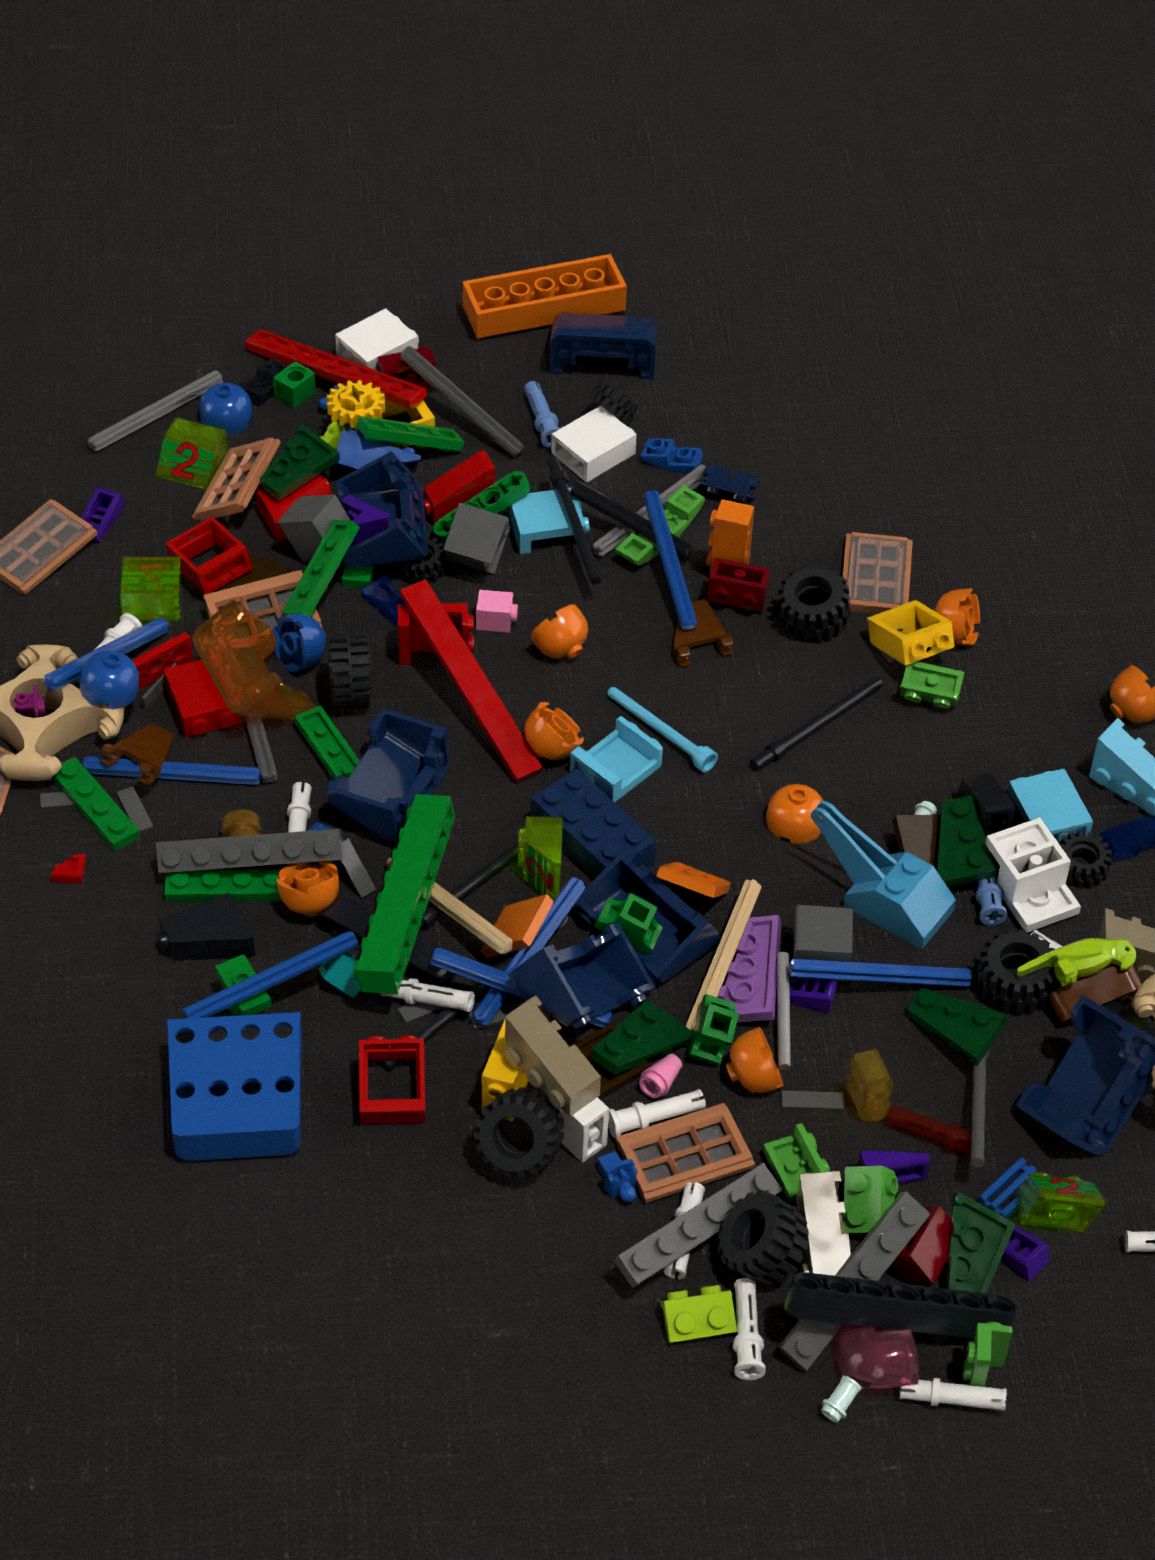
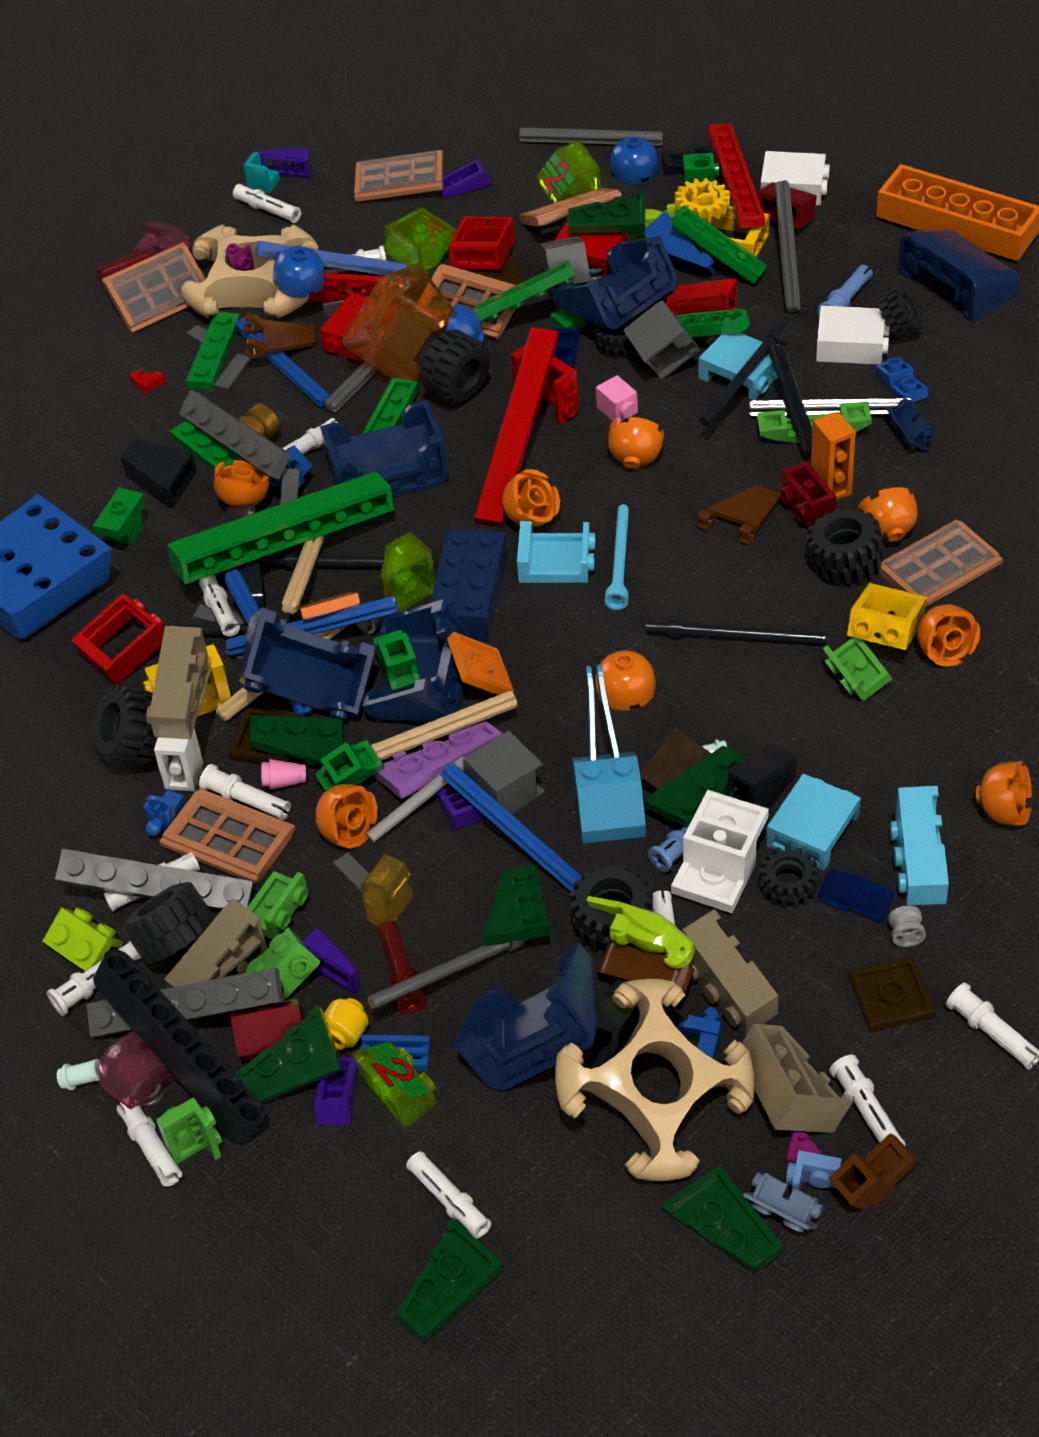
camera: 55 degrees right, 0 degrees up
(272, 976) = (129, 515): blue axle -> none
(367, 517) = (600, 272): dark purple slope -> none
(670, 560) = (778, 444): blue axle -> none
(817, 551) = (894, 510): none -> orange cylinder
(965, 1185) = (346, 1022): none -> yellow head

